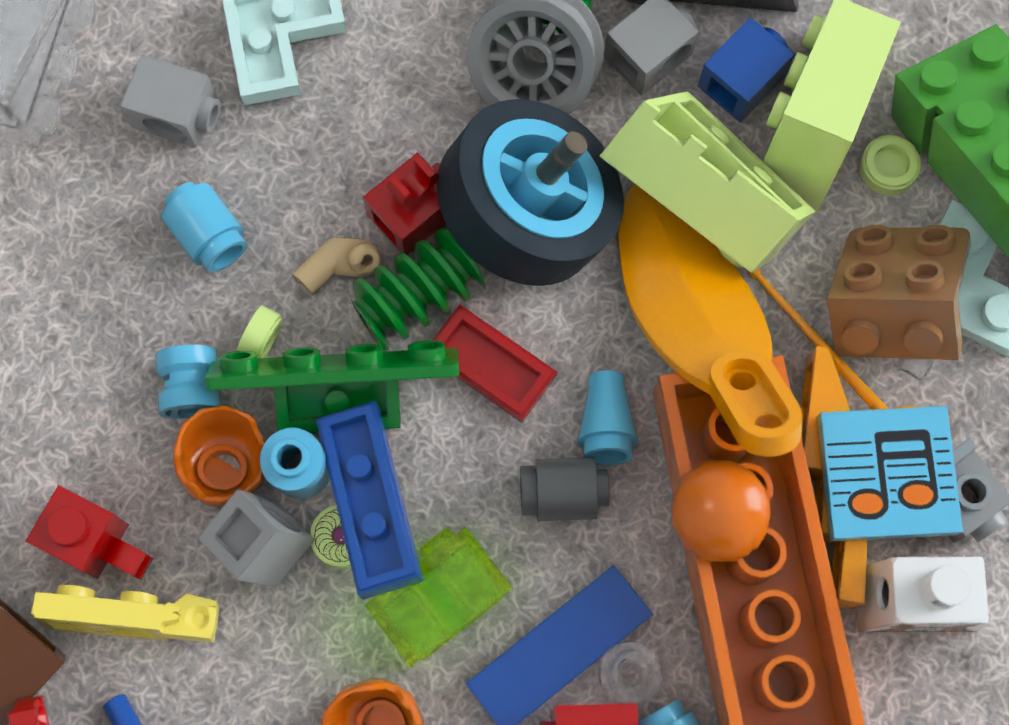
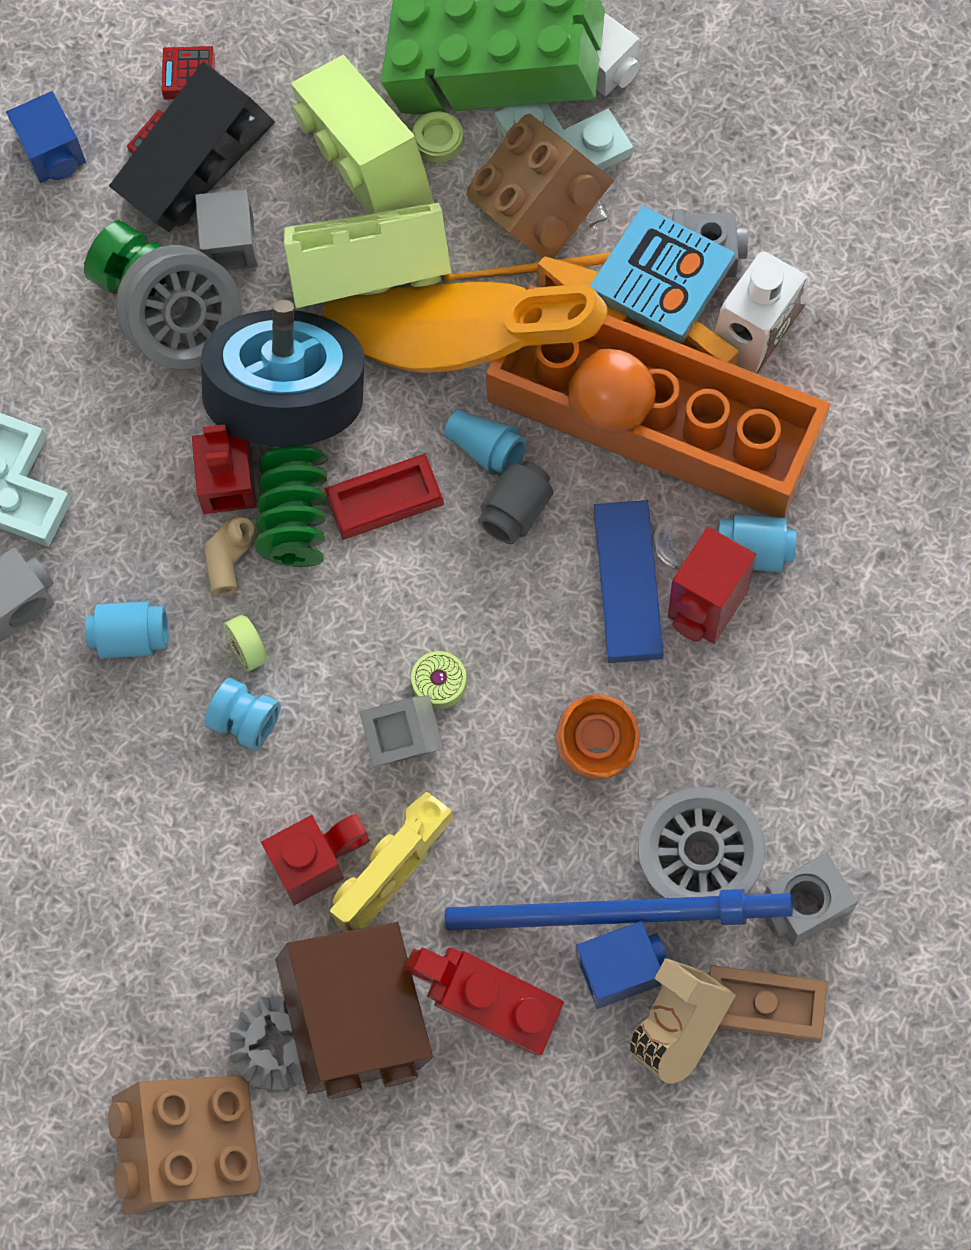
camera: 50 degrees left, 5 degrees down
(215, 433) = (309, 705): orange hair -> none
(308, 477) = (366, 685): medium azure brick -> none
(320, 385) = (330, 608): green bracket -> none
(369, 500) = (430, 632): blue tile -> none
(455, 592) = (533, 635): clear neon green brick -> none
(746, 69) = (296, 180): blue brick -> none

